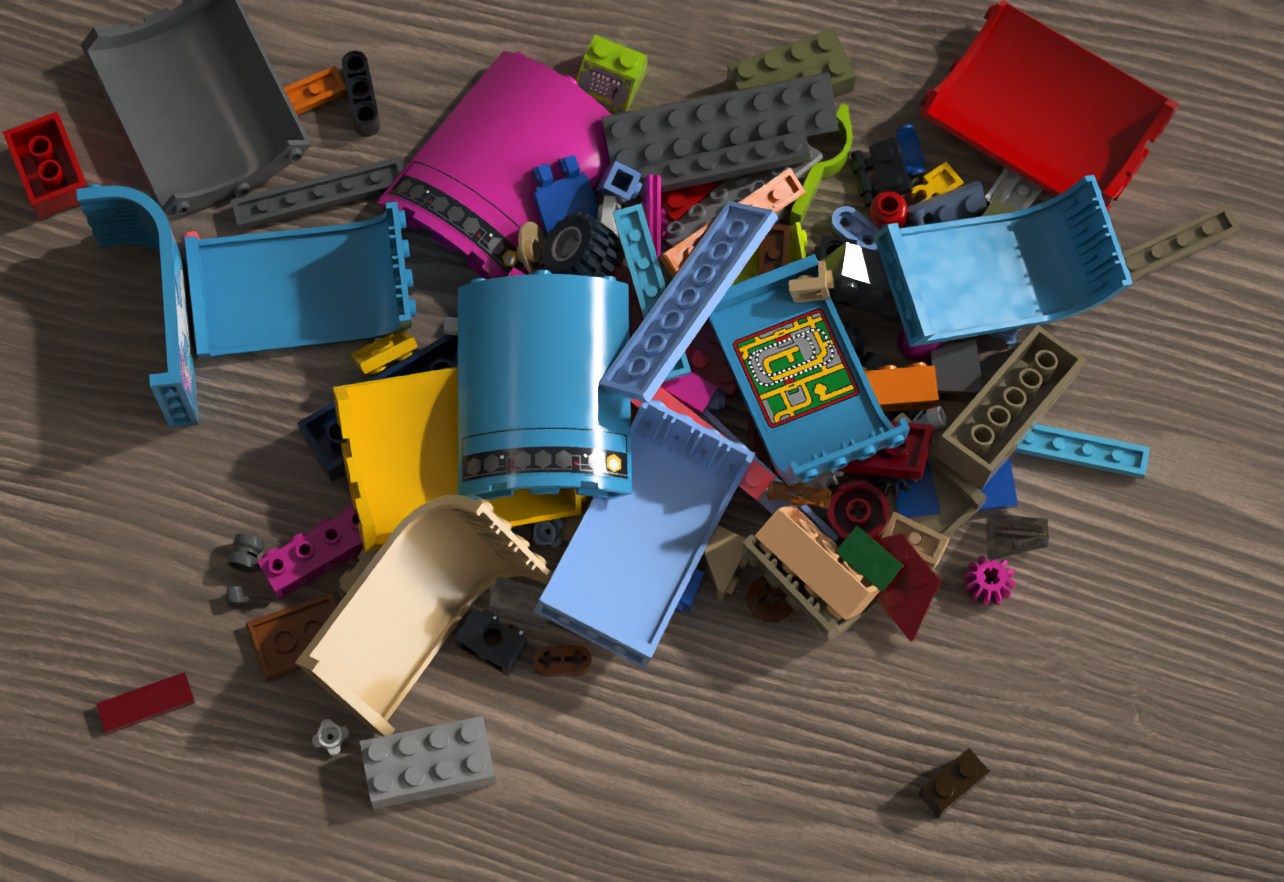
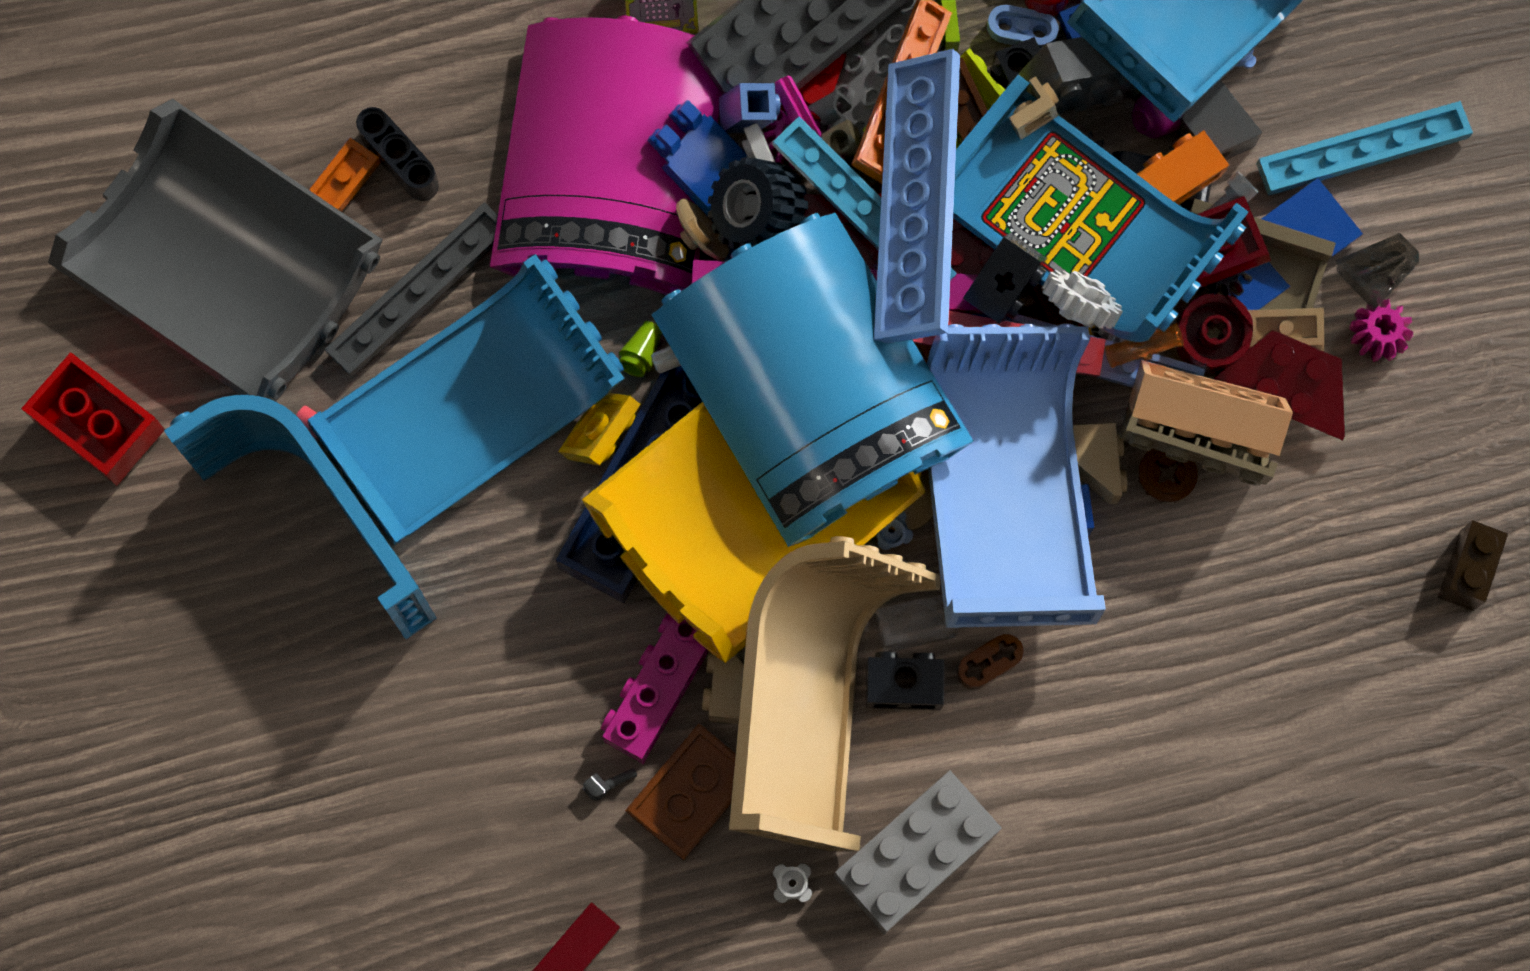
camera: 30 degrees left, 5 degrees up
(245, 553) = (579, 733): dark grey wheel -> none
(439, 312) = (638, 351): none -> lime cone
(674, 232) = (841, 133): none -> leg
(707, 393) = (988, 290): none -> black brick
(763, 433) = (1082, 299): none -> white gear
(869, 558) = (1258, 375): dark green slope -> none
(1008, 407) = (1303, 135): dark tan brick -> none

